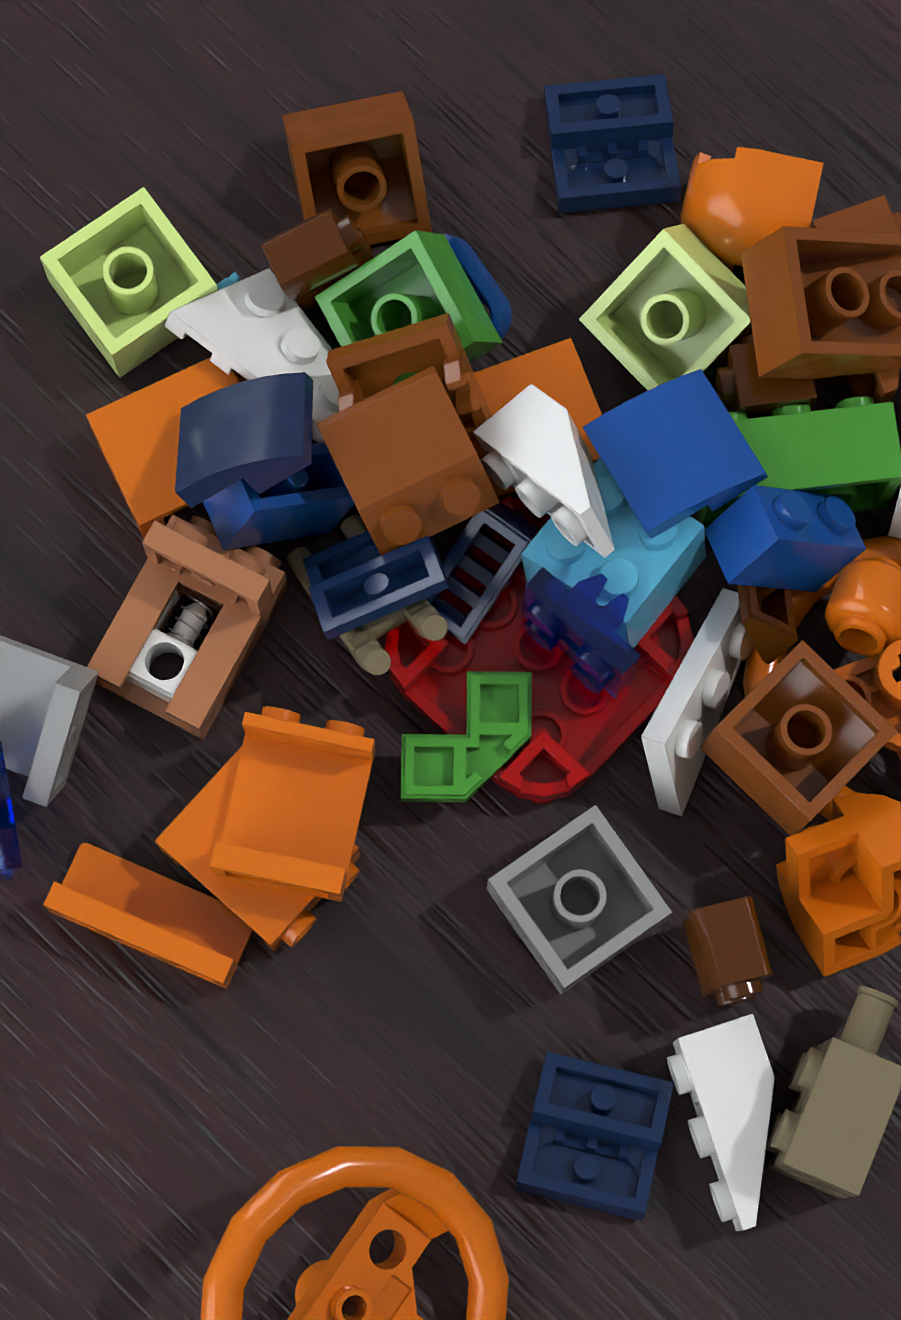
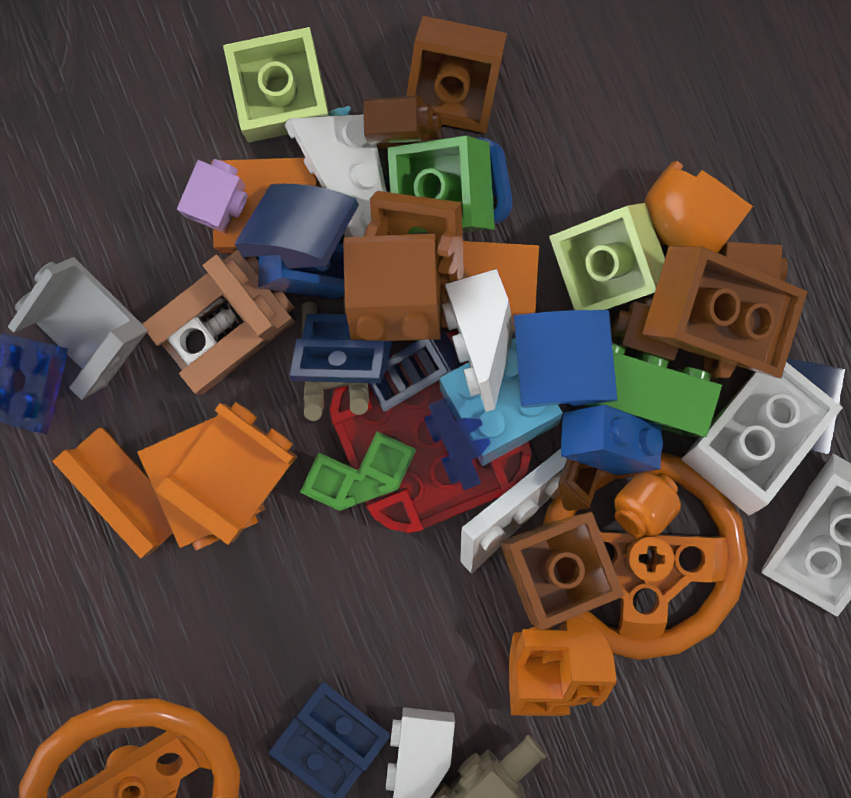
camera: 30 degrees right, 10 degrees up
(113, 453) = (213, 195): none -> lavender brick
(578, 899) = (380, 604): light grey brick -> none
(612, 143) = (626, 125): dark blue slope -> none
(728, 951) = (457, 678): reddish brown brick -> none

